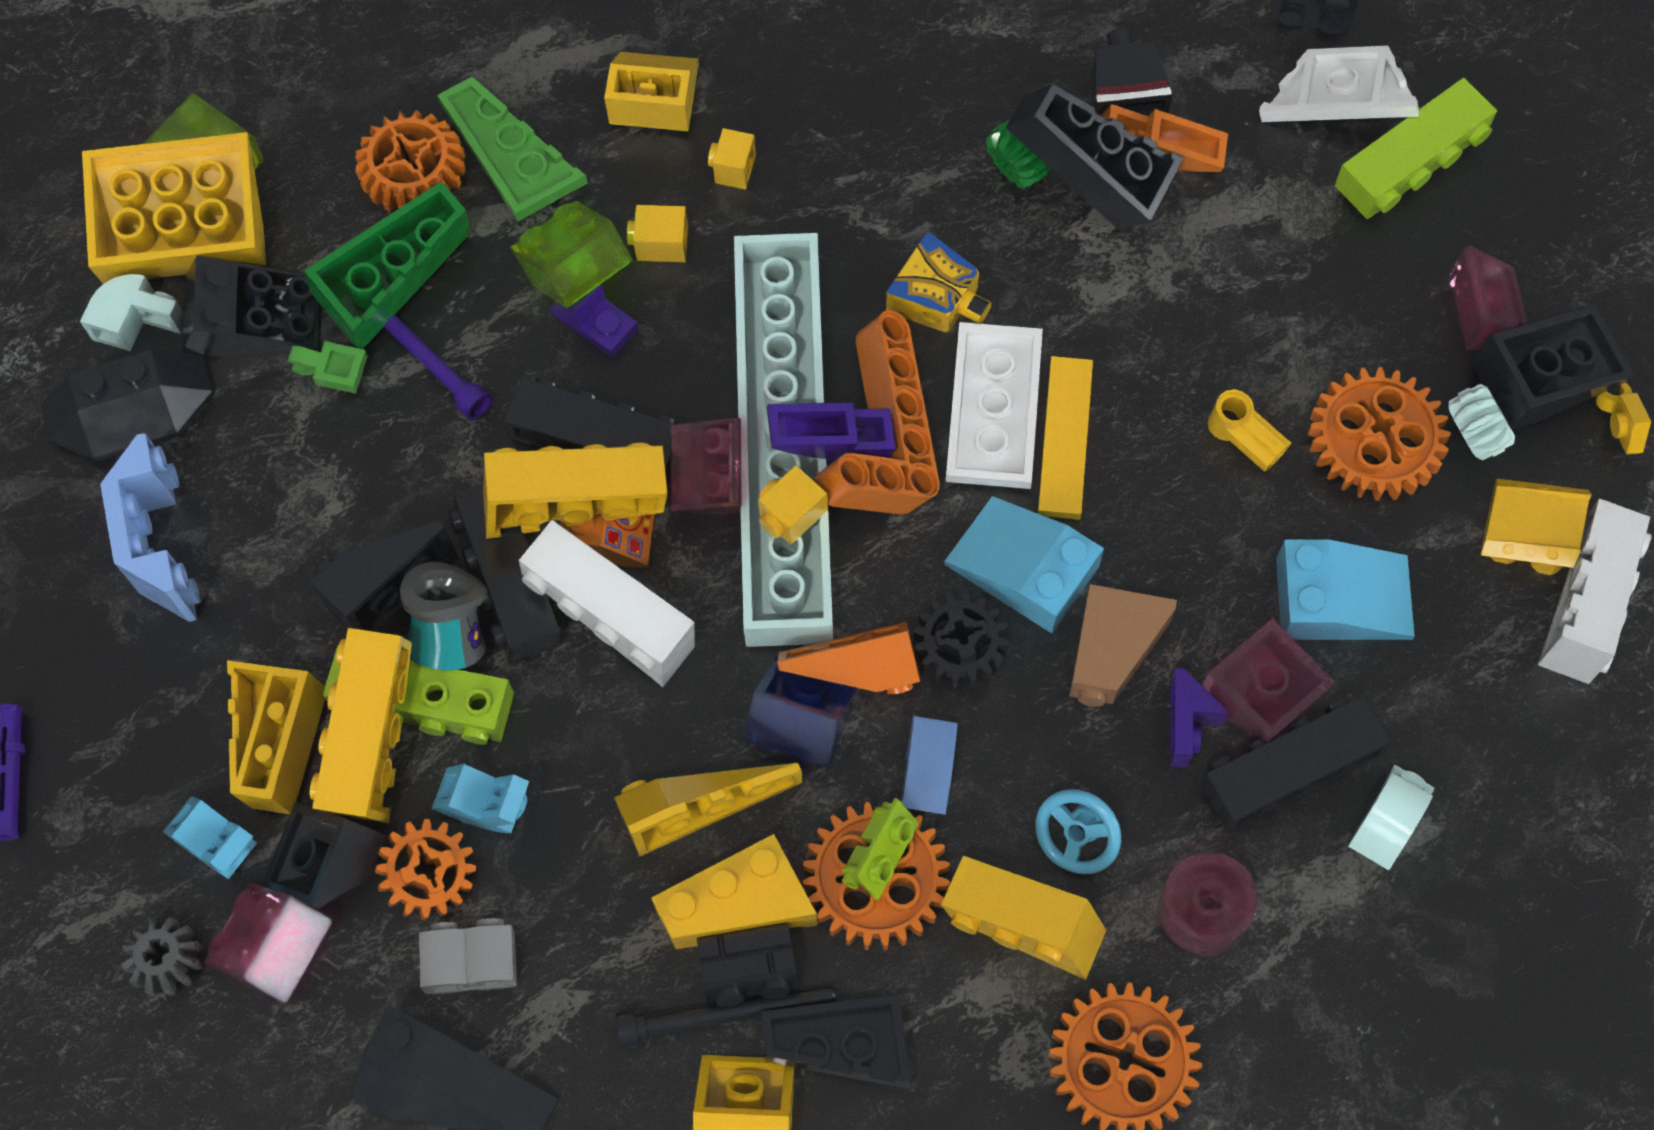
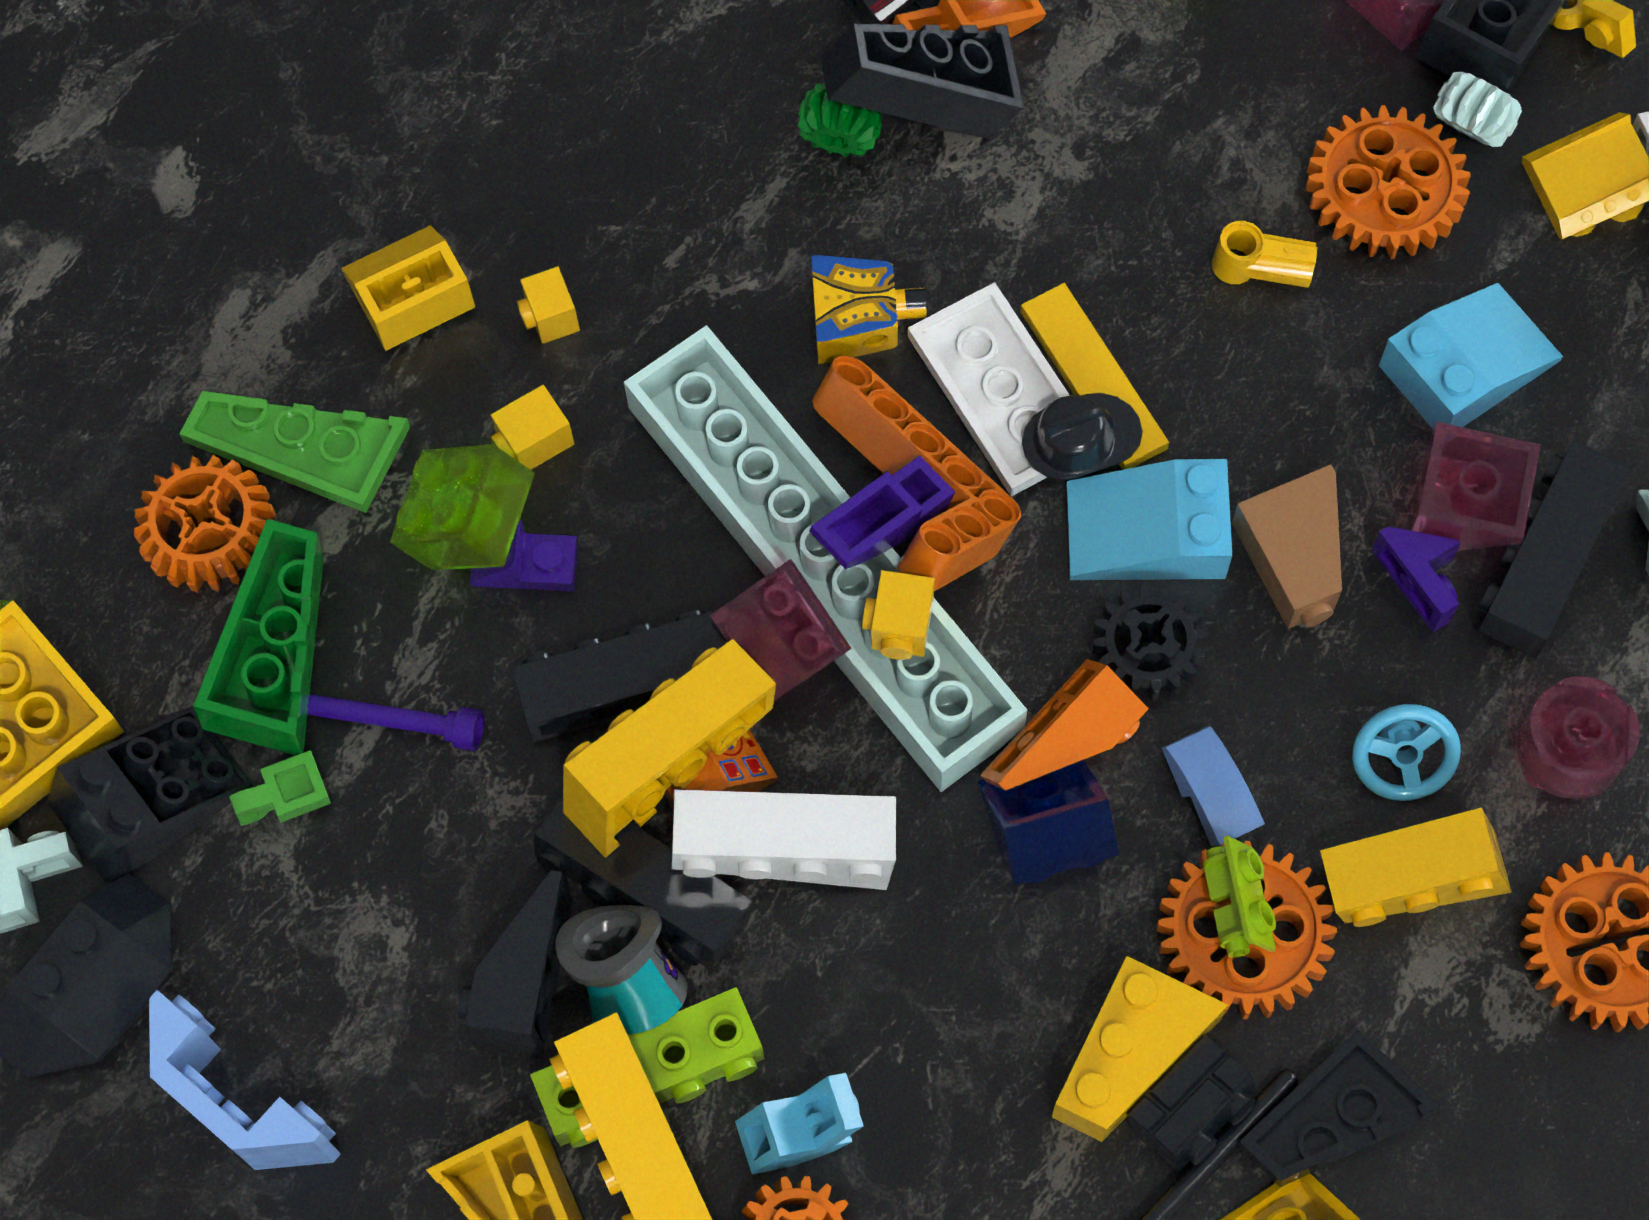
camera: 35 degrees left, 0 degrees up
(684, 804) = (1000, 995): yellow wedge -> none
(1021, 470) = (1081, 435): none -> black piece

